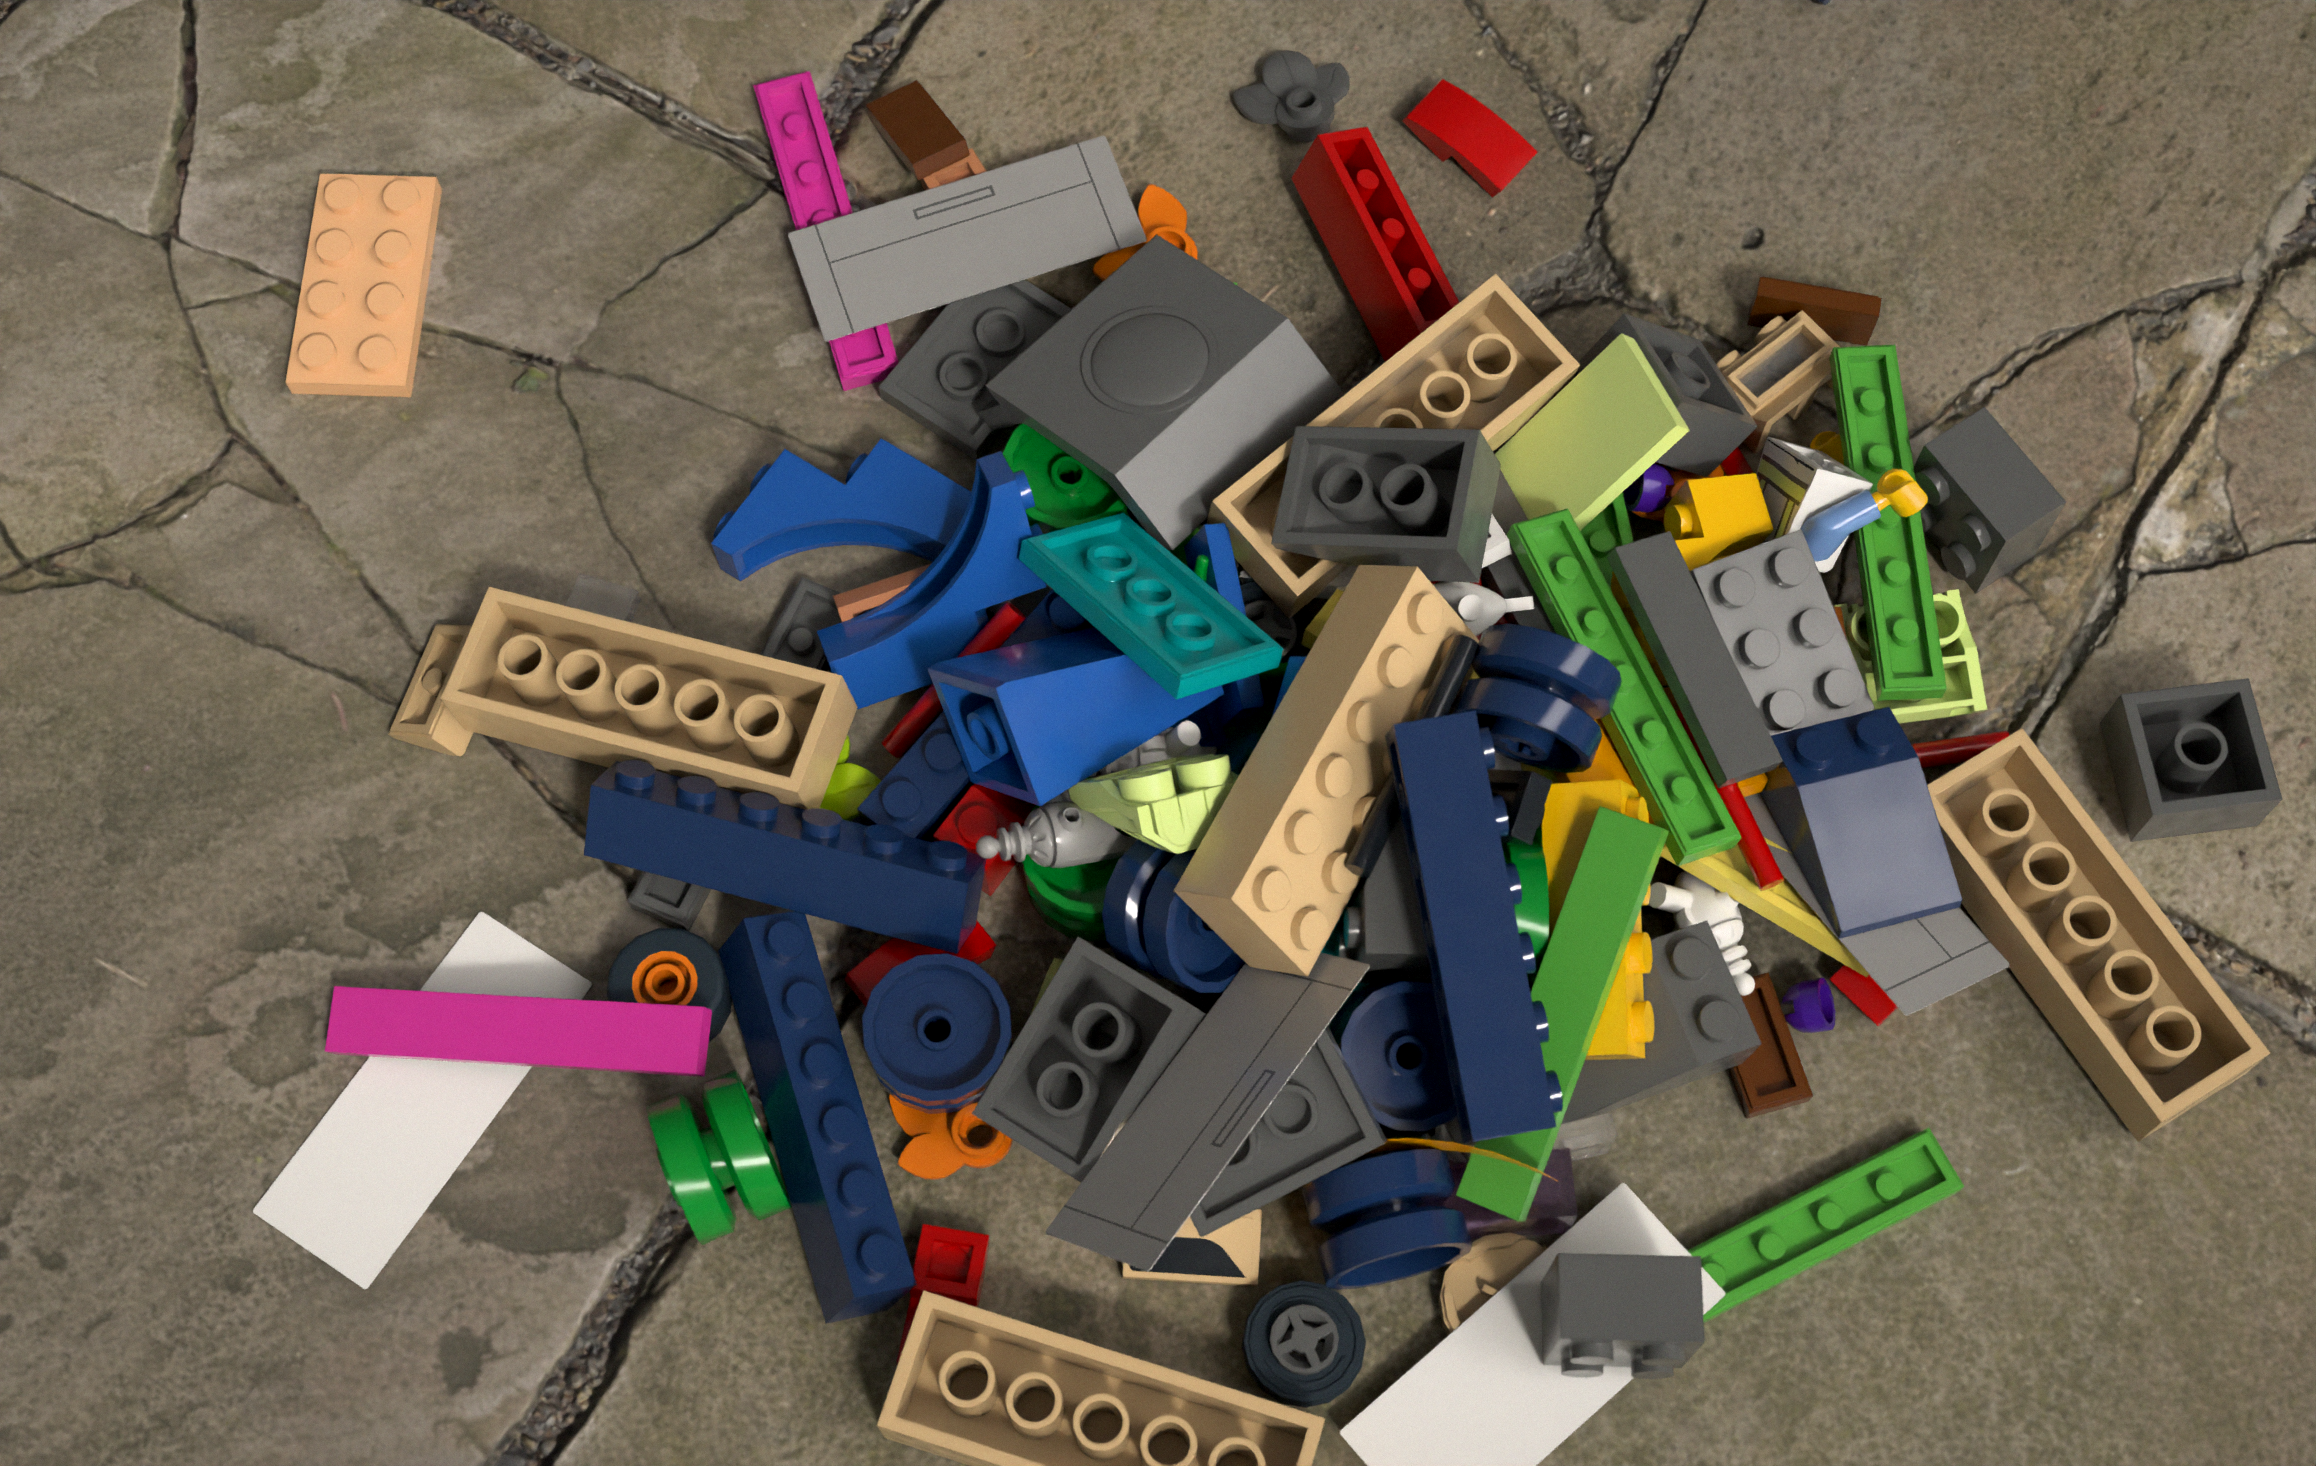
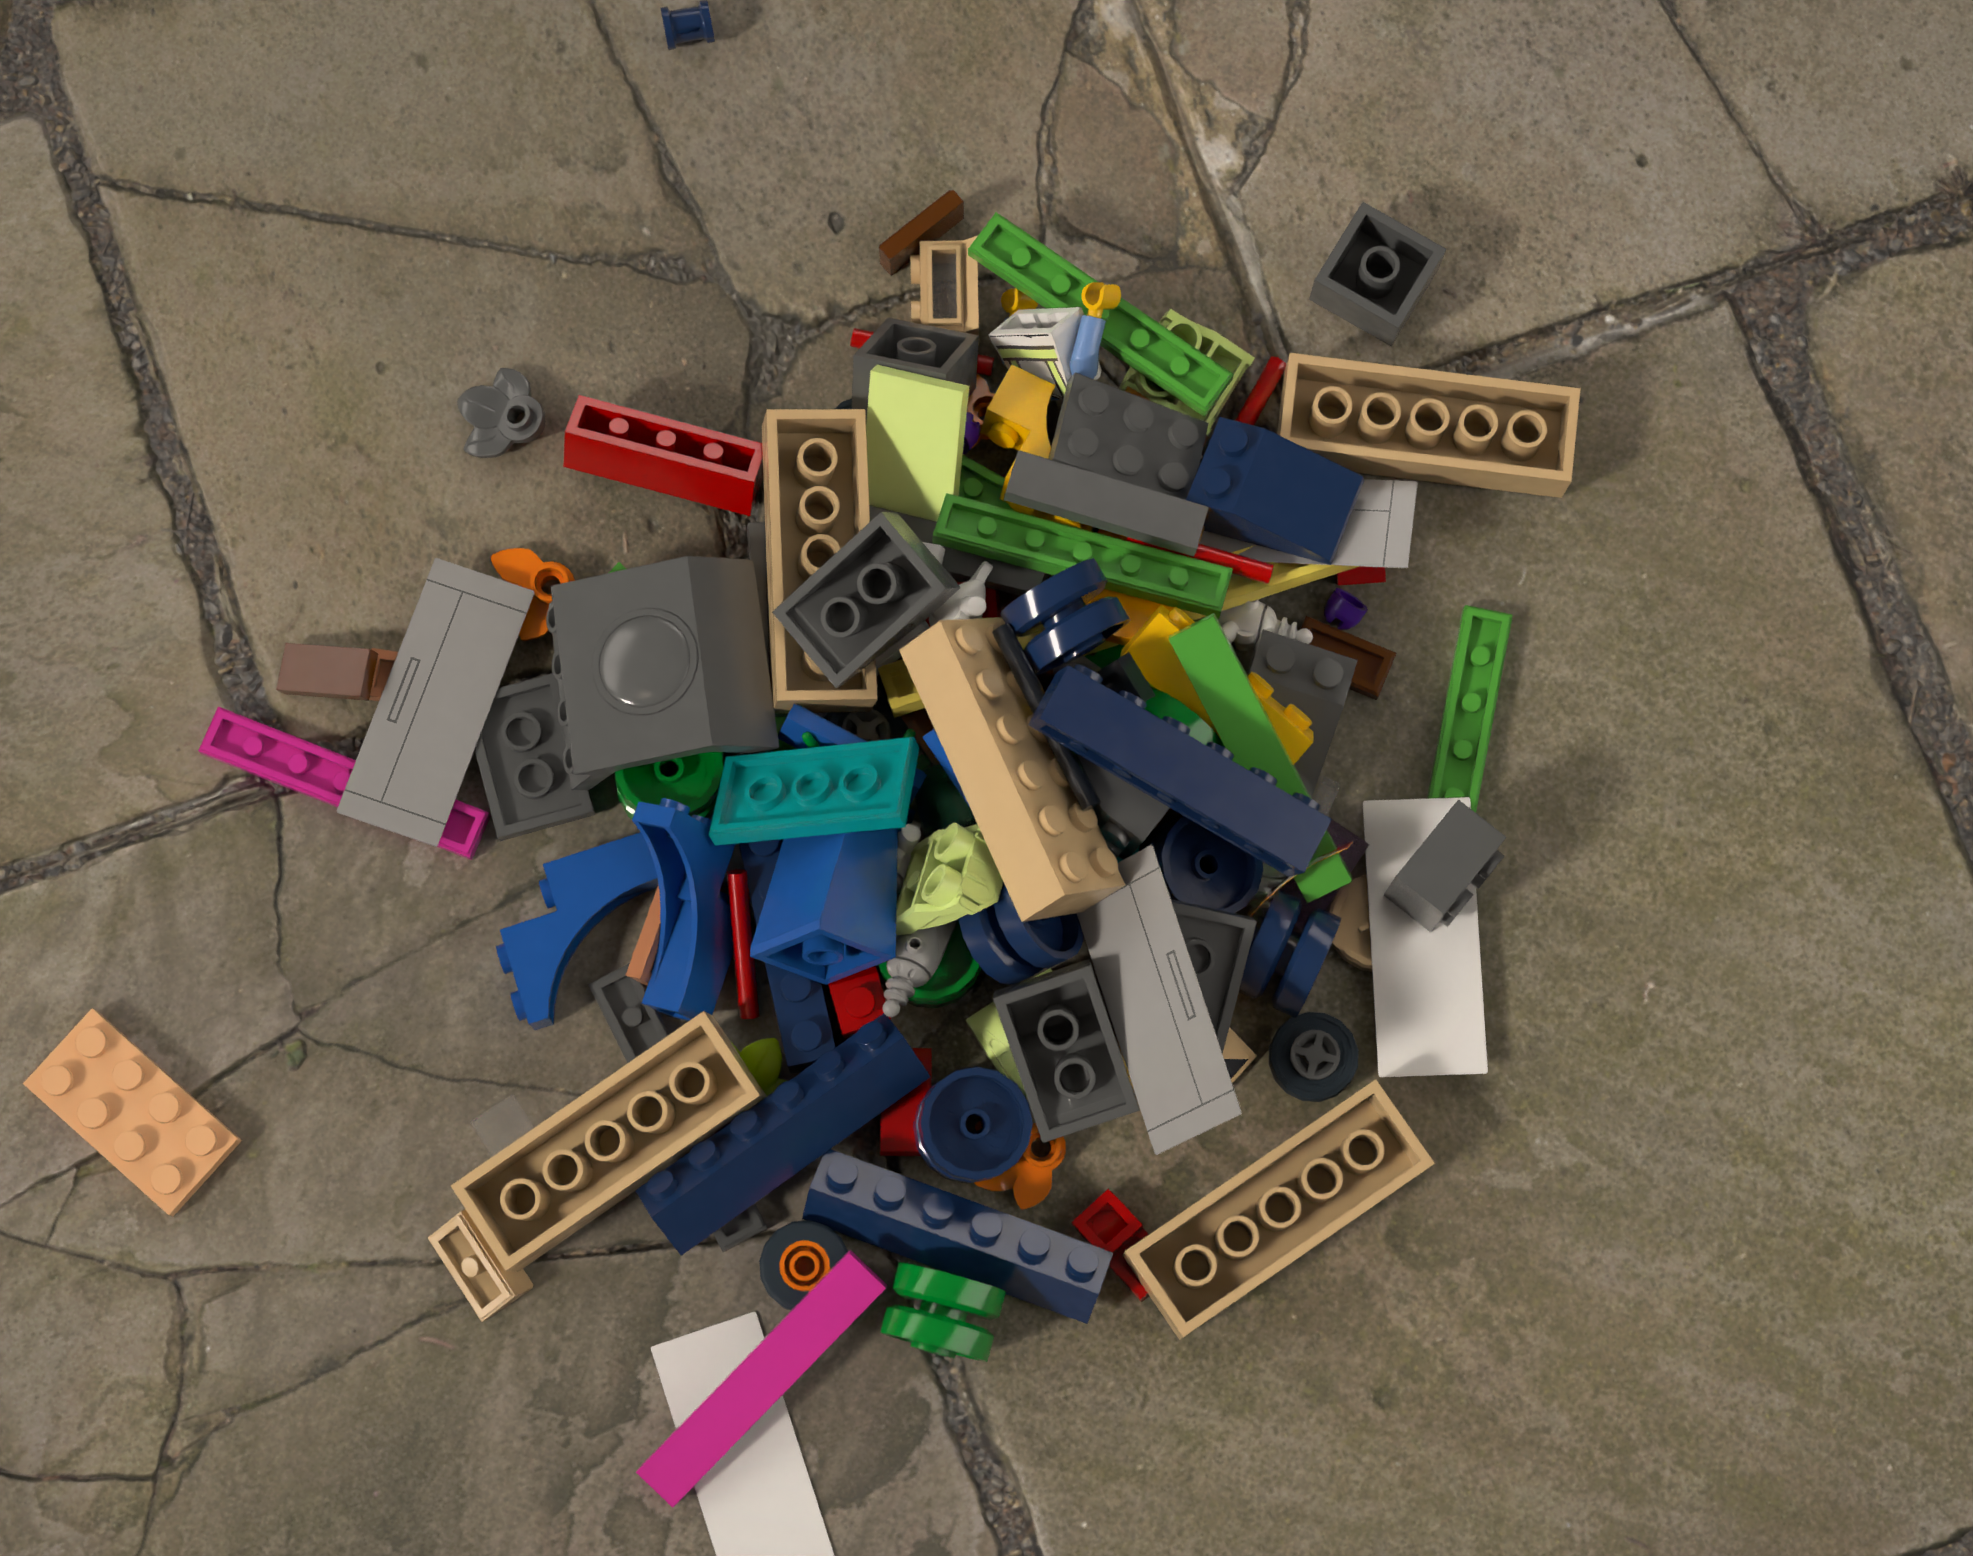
camera: 55 degrees left, 10 degrees up
(1471, 133) = (625, 331): red slope -> none
(1984, 500) = (1131, 247): dark grey brick -> none

